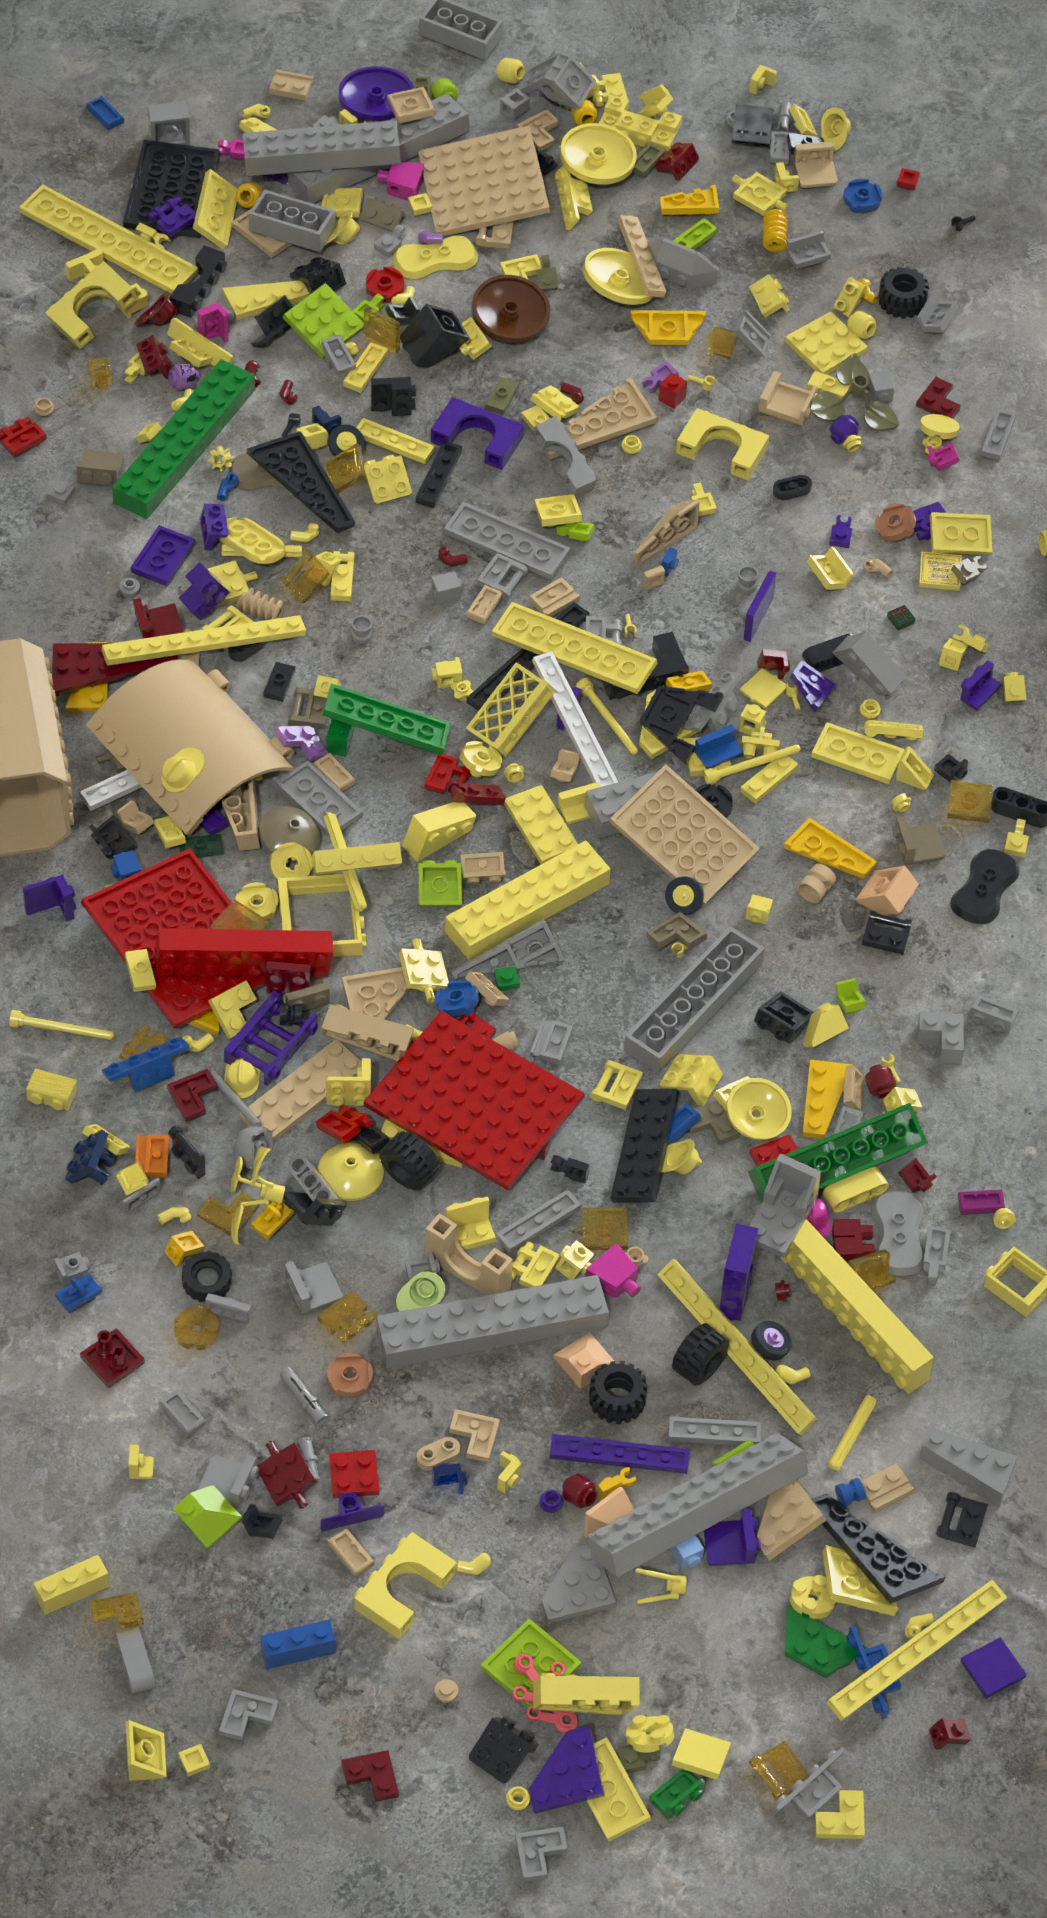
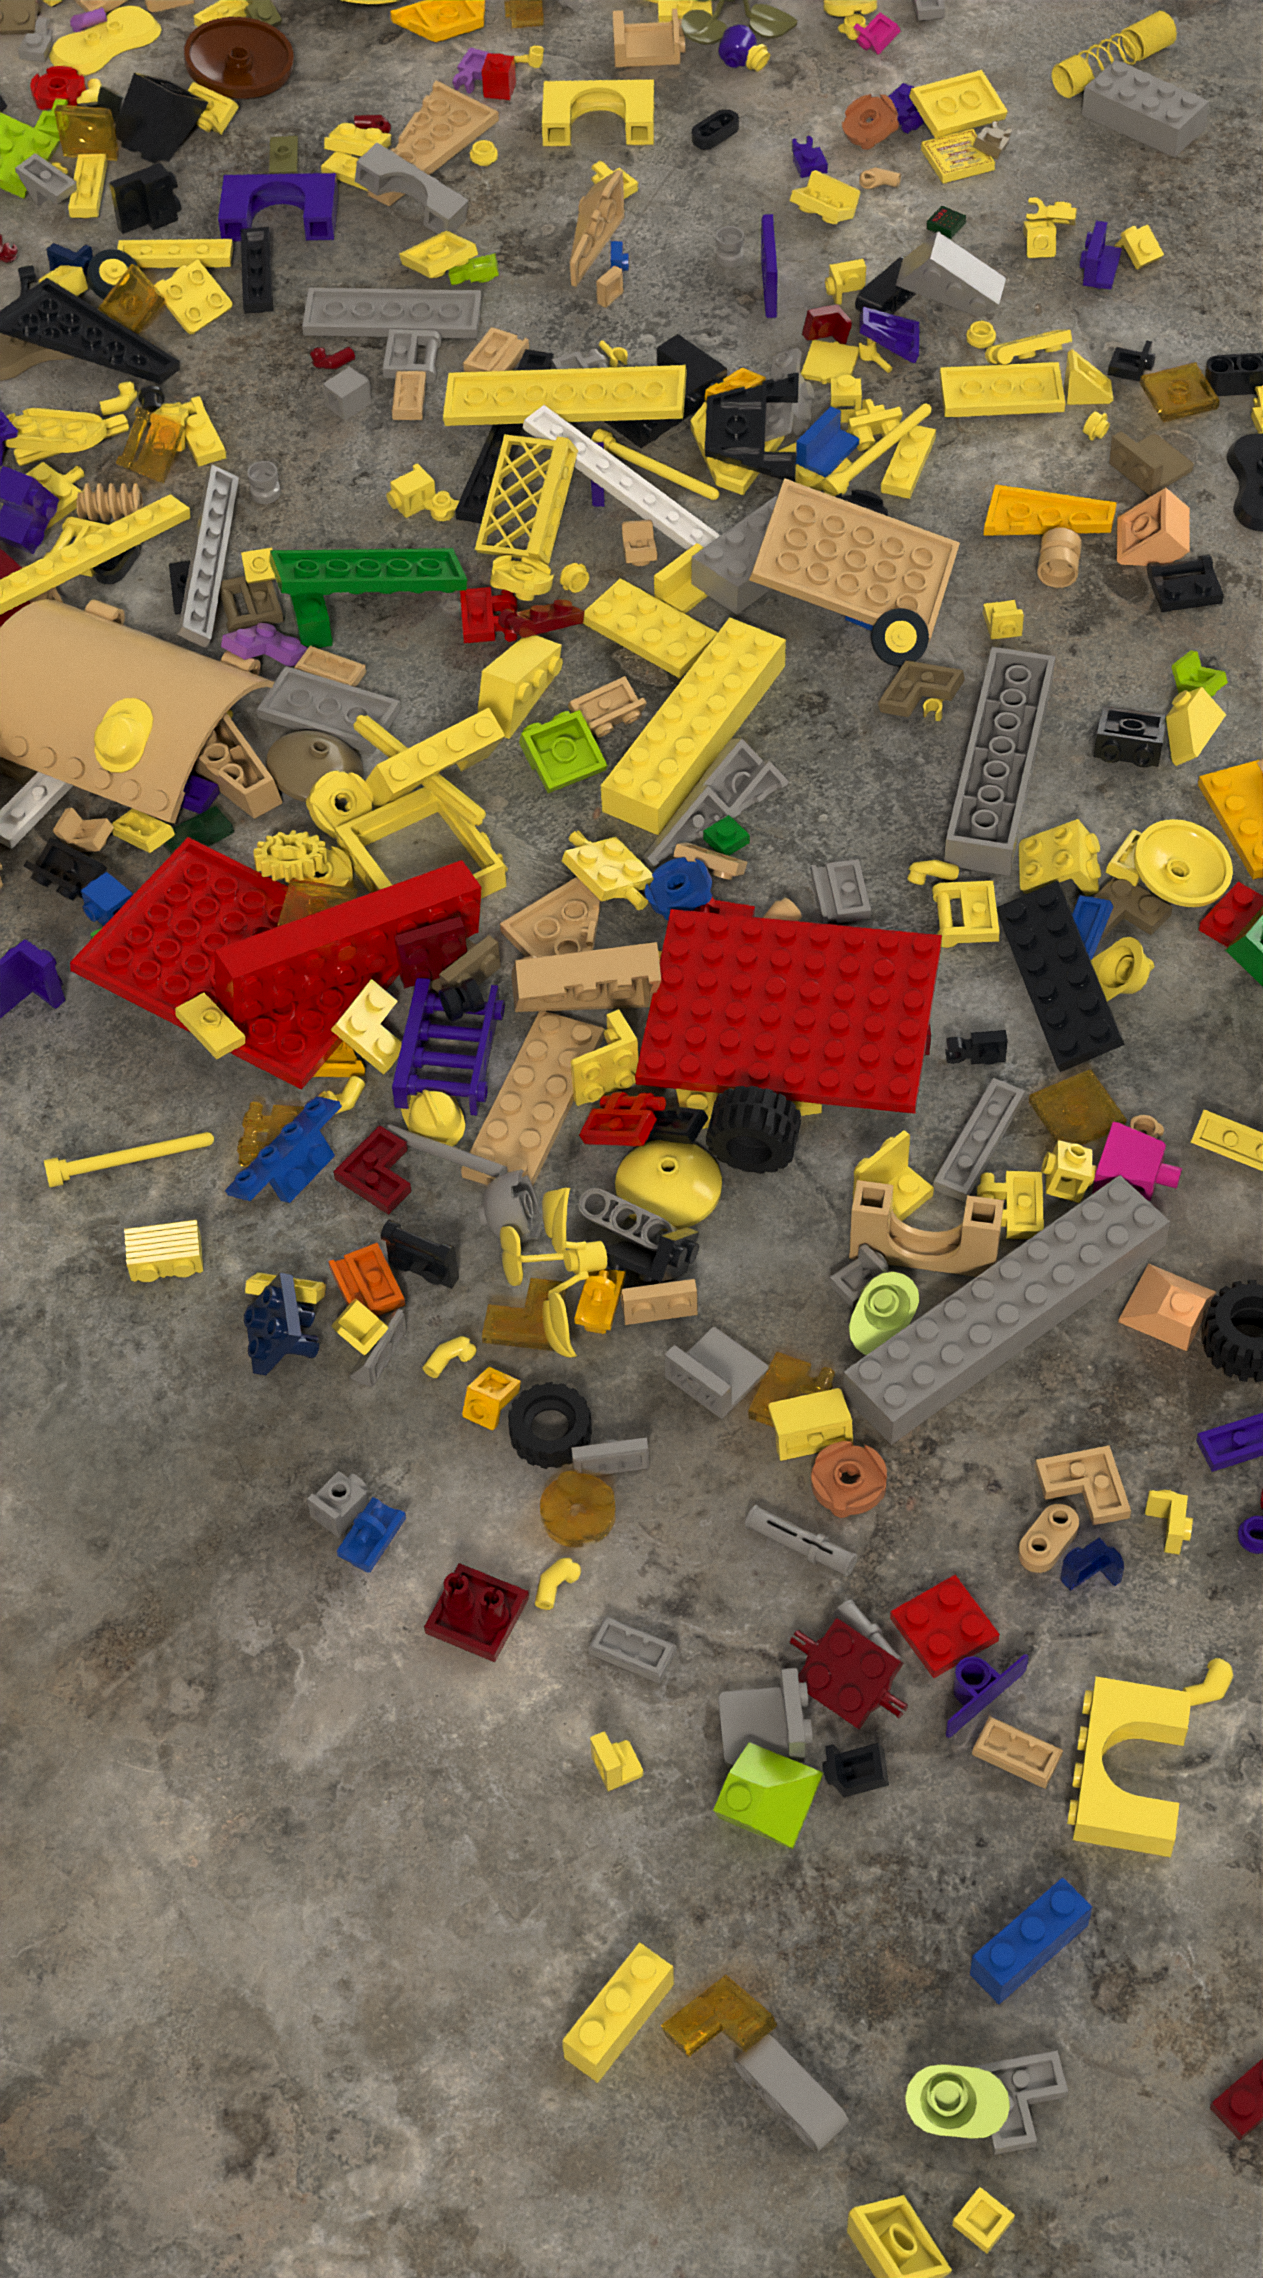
camera: 20 degrees left, 0 degrees up
(161, 1358) = (550, 1579): none -> light yellow arm
(211, 1699) = (957, 2101): none -> yellowish green piece
(241, 885) = (290, 856): none -> light yellow gear
(300, 667) = (208, 556): none -> light grey plate
(303, 1235) = (659, 1301): none -> tan bracket
(322, 545) = (147, 398): none -> black bush
(345, 1336) = (810, 1423): none -> light yellow panel
(605, 1048) = (934, 868): none -> light yellow arm
(807, 632) = (845, 278): none -> light yellow bracket

